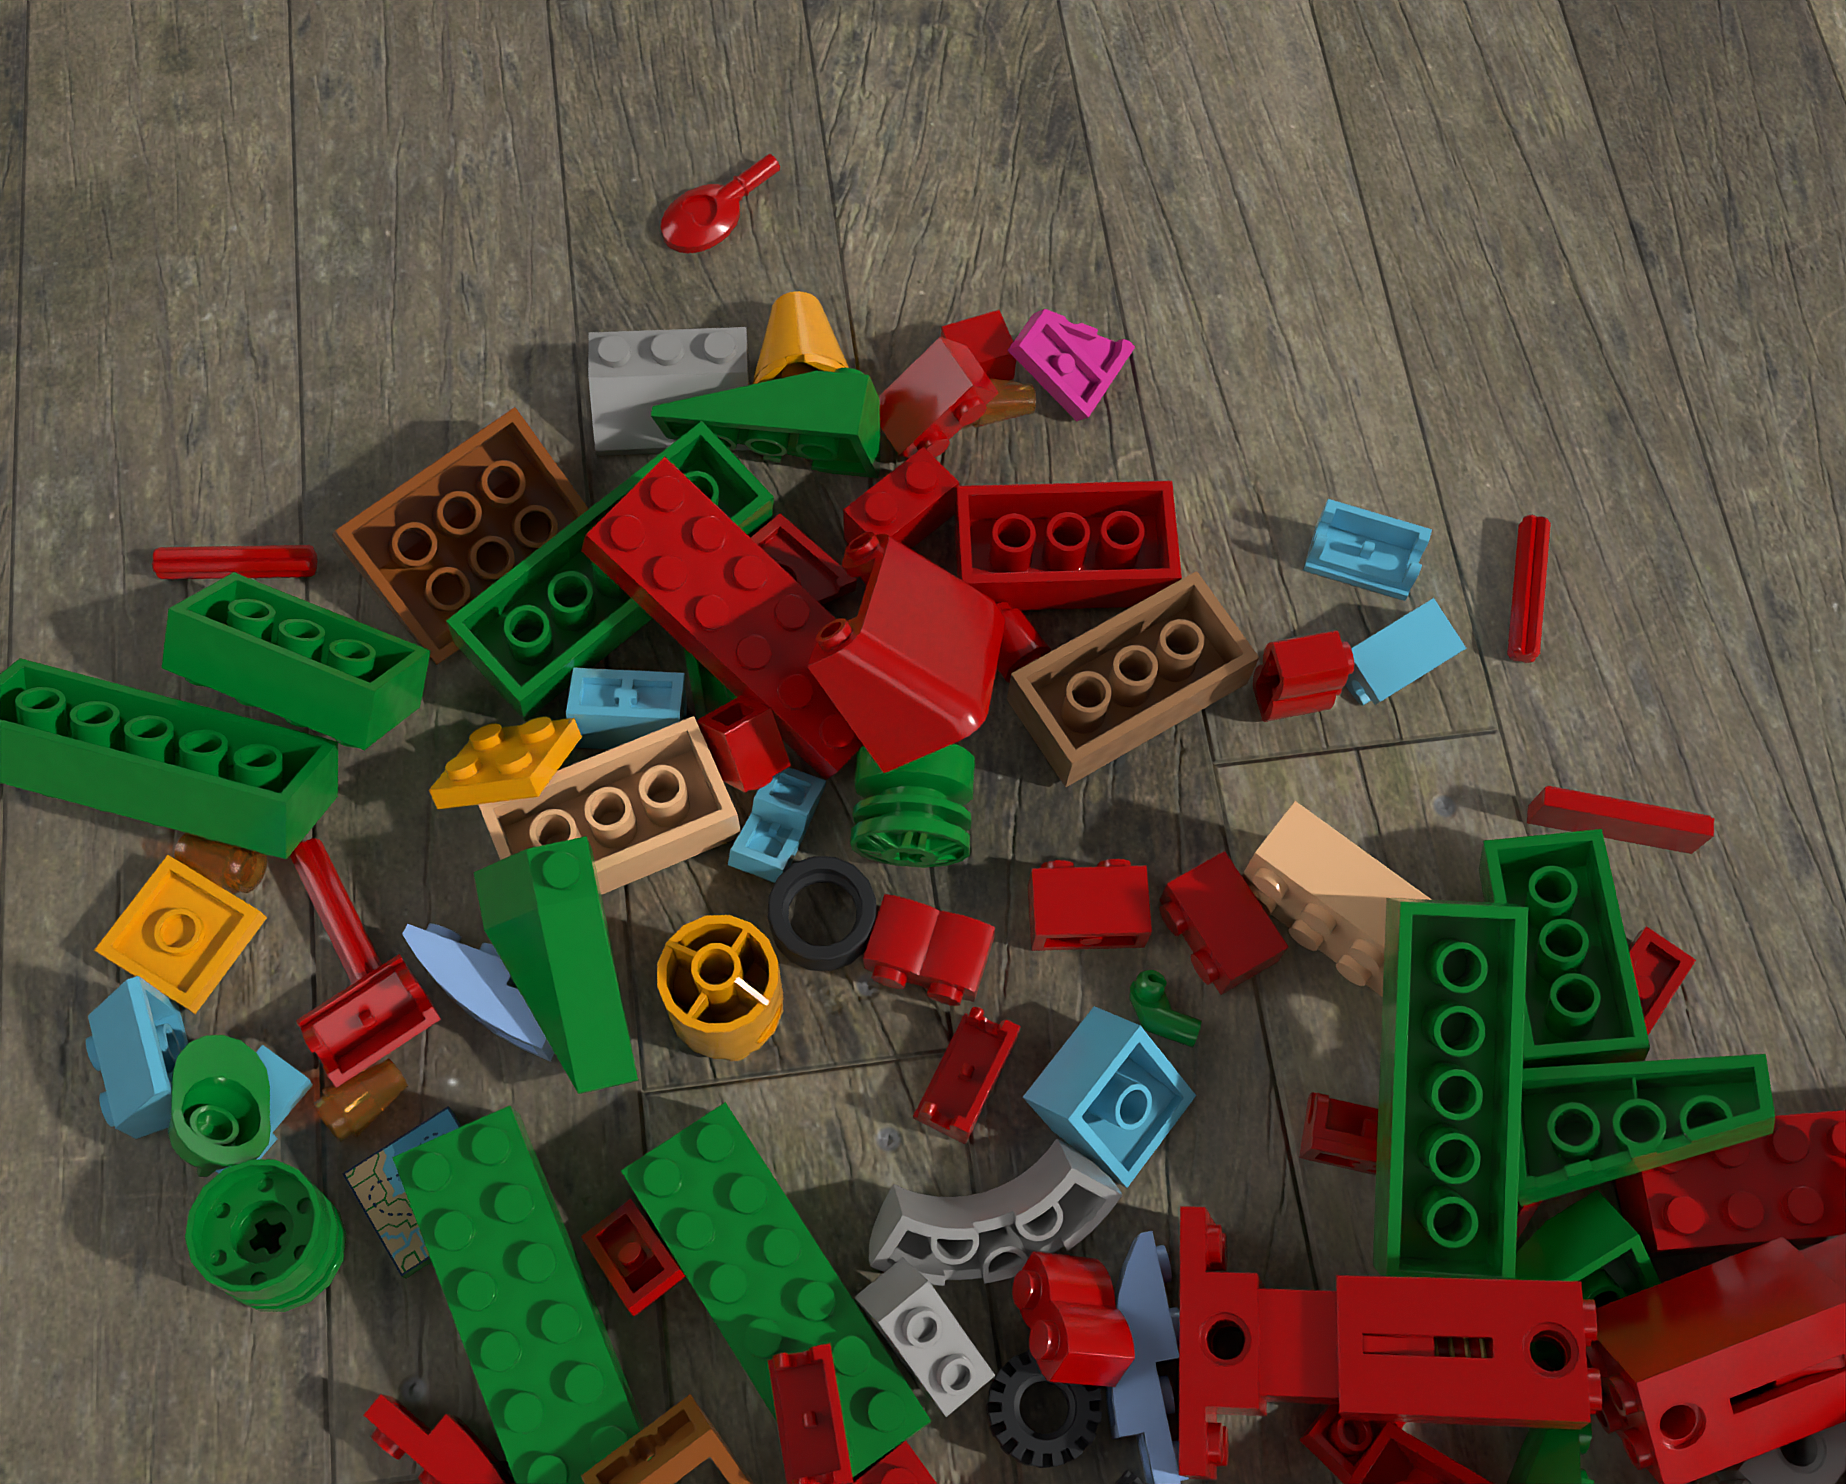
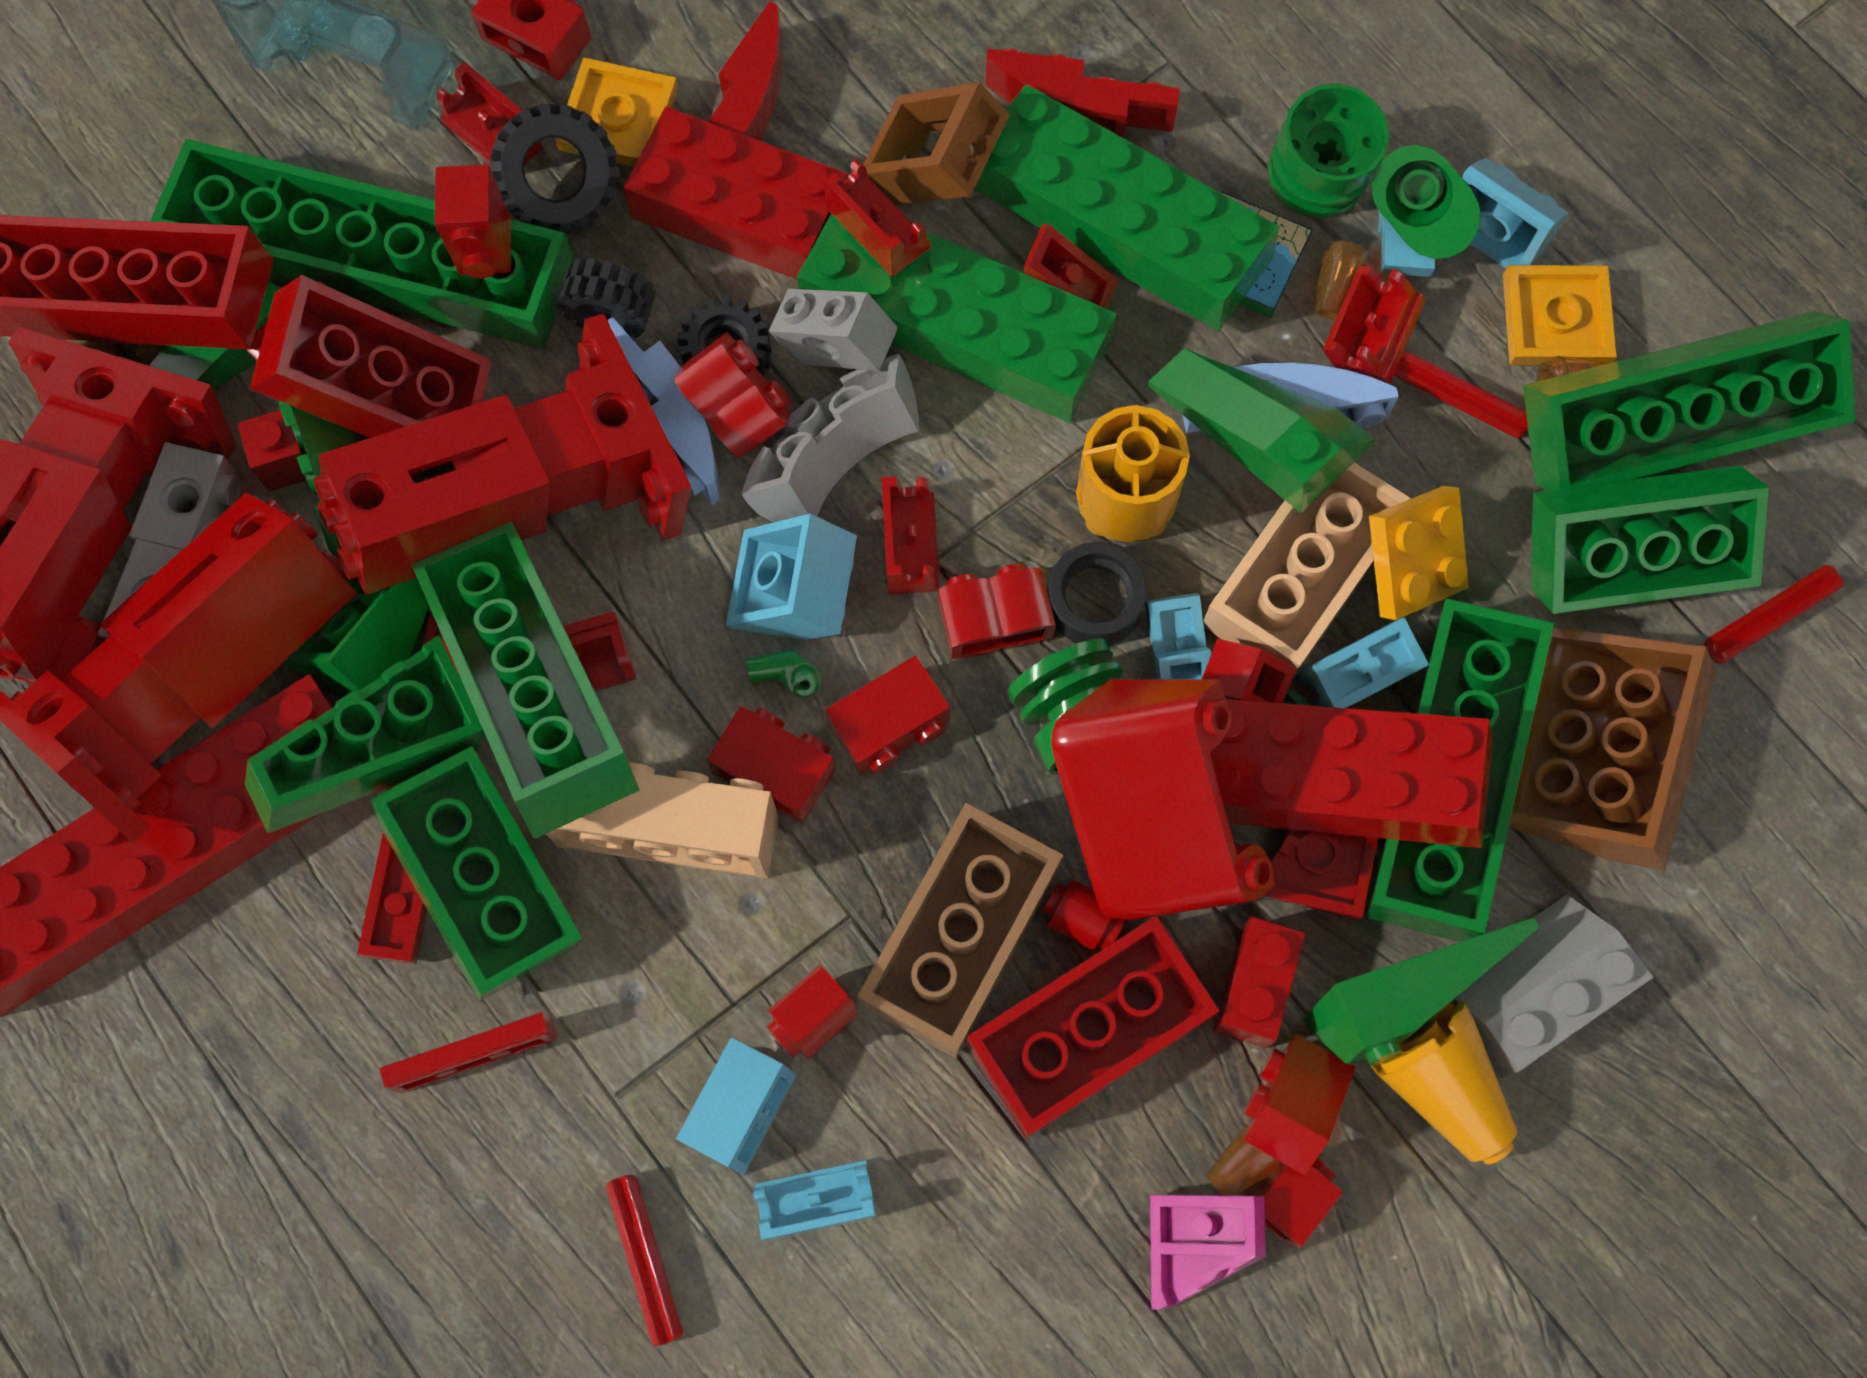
camera: 155 degrees right, 5 degrees up
(711, 211) = (1656, 1221): red piece -> none

